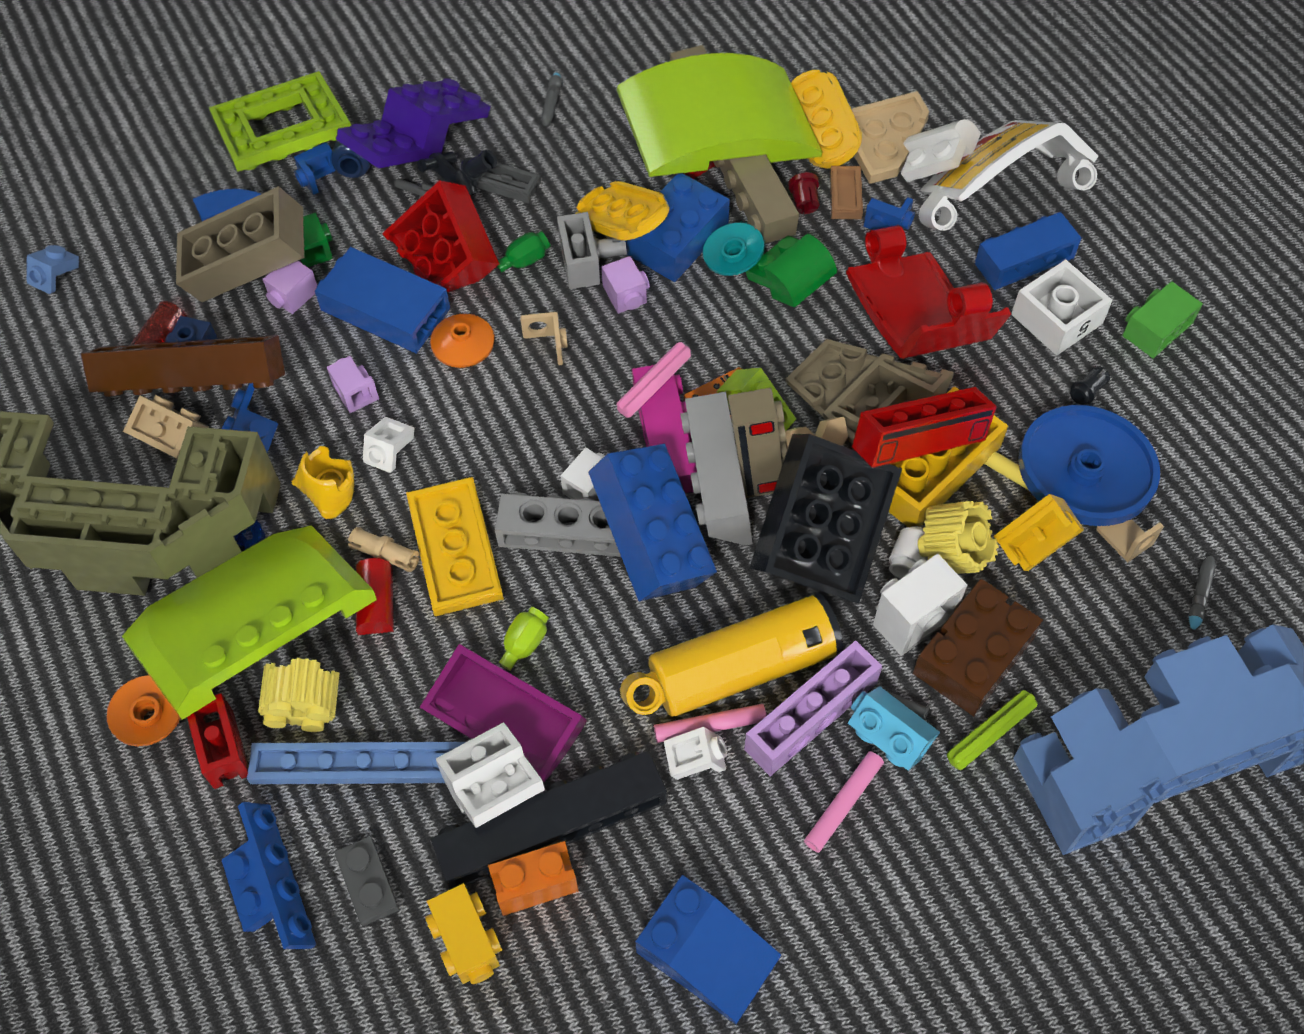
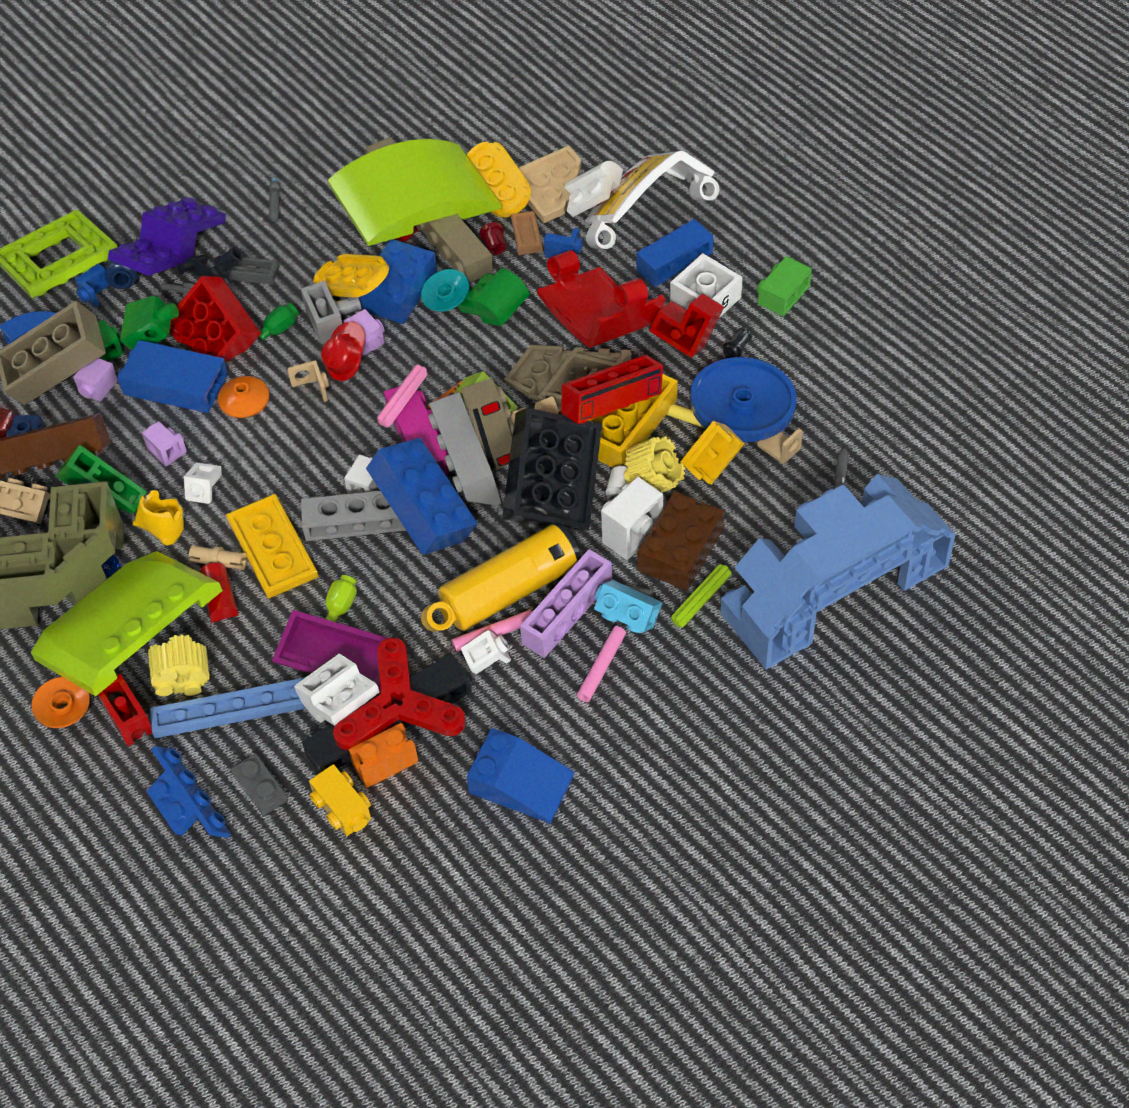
camera: 10 degrees left, 5 degrees down
(247, 410) = (85, 468): none -> green slope
(366, 224) = (147, 321): none -> green torso
(589, 823) = (415, 707): none -> red piece
(594, 305) = (344, 351): none -> red piece
(1032, 356) = (688, 328): none -> red brick

